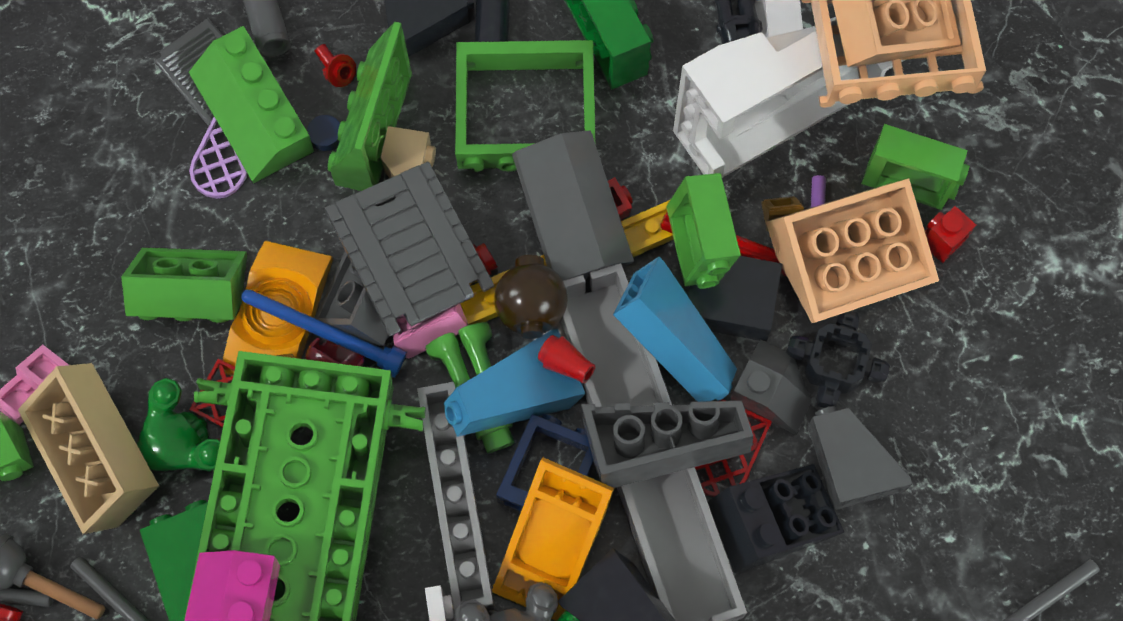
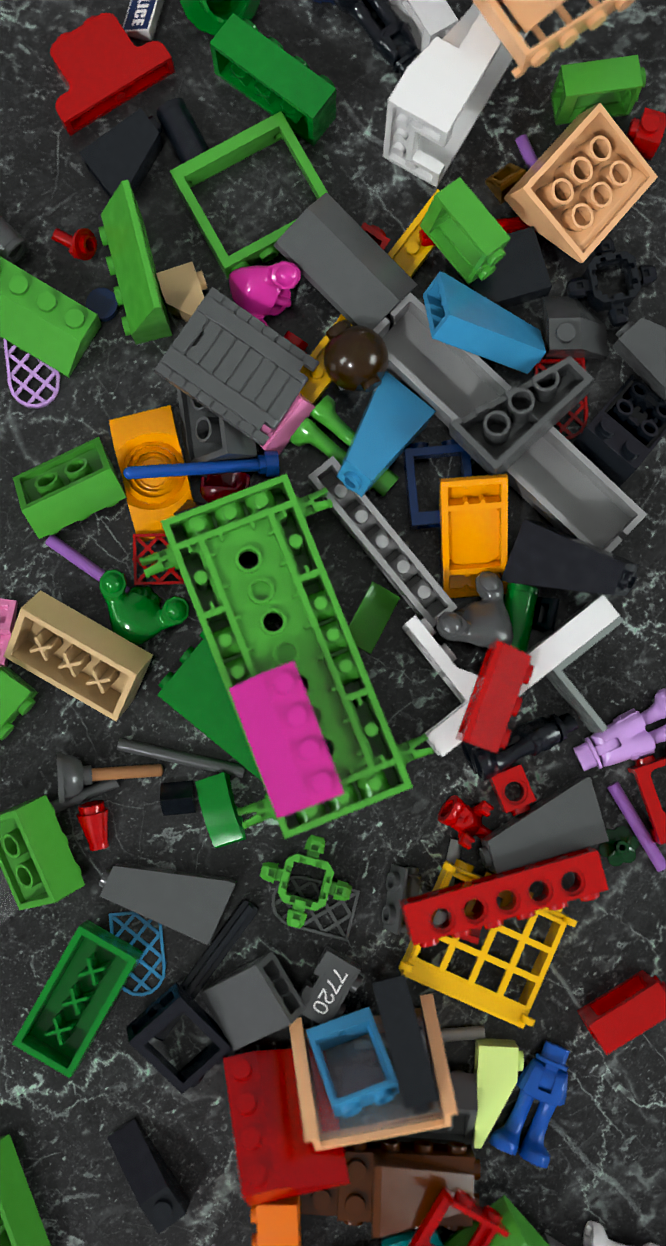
camera: 30 degrees left, 15 degrees up
(152, 354) = (76, 558): none -> medium lavender bar
(404, 570) = (372, 616): none -> bright green slope
(482, 193) = (264, 288): none -> dark pink head
(563, 358) = (410, 393): red cone -> none

